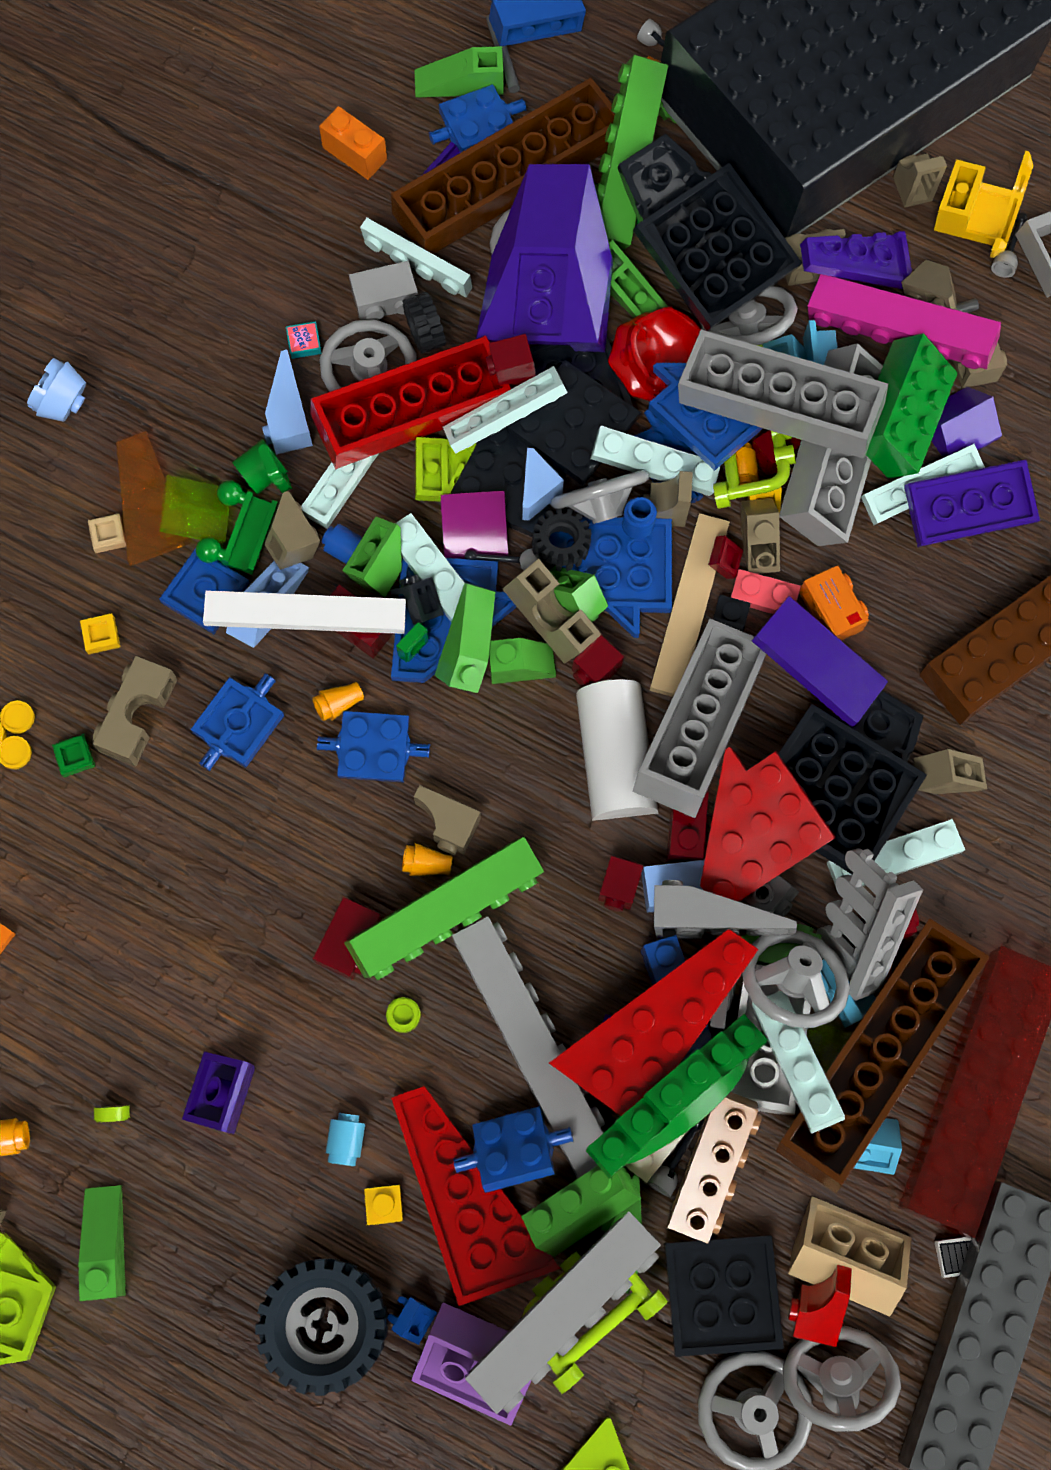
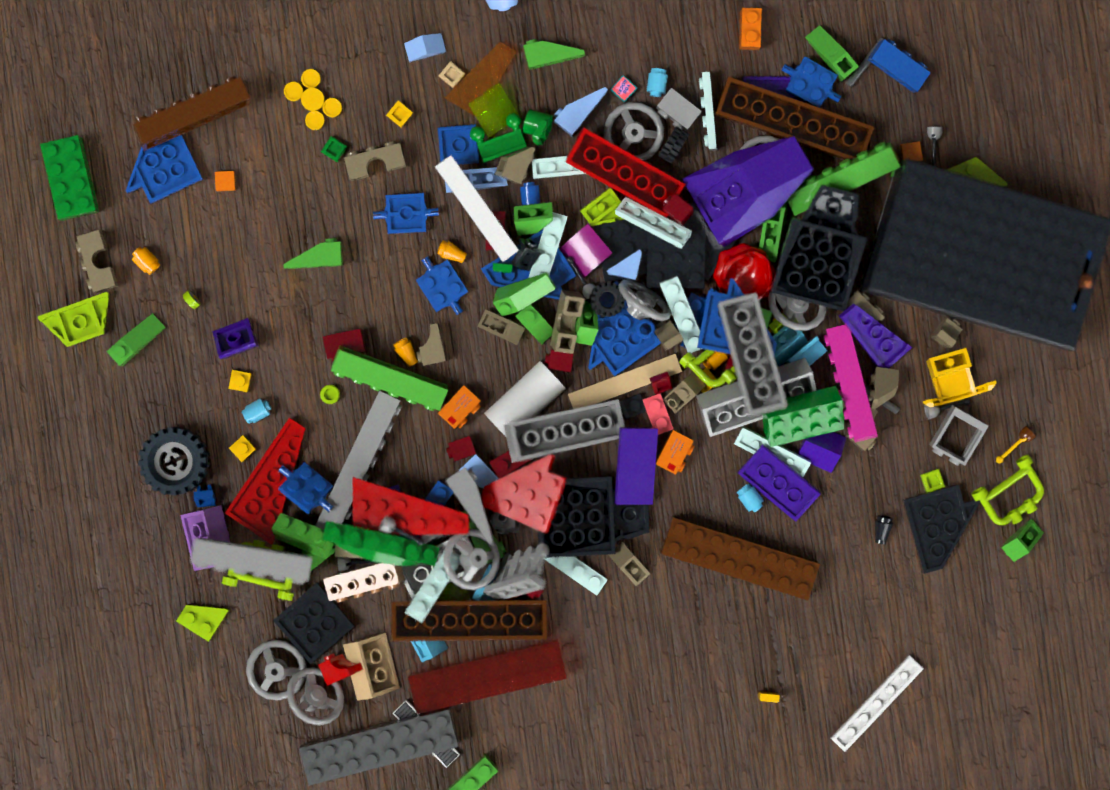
camera: 55 degrees right, 15 degrees up
(41, 539) = (425, 46): none -> light blue slope
(182, 392) = (546, 53): none -> bright green slope
(199, 881) = (321, 255): none -> bright green slope
(283, 1132) = (240, 381): none -> yellow plate
(328, 291) = (657, 82): none -> medium azure brick
(491, 706) = (501, 327): none -> dark tan arch
(560, 843) = (459, 407): none -> orange brick
(661, 1057) = (389, 525): none -> hinge
(967, 553) = (750, 498): none -> medium azure brick

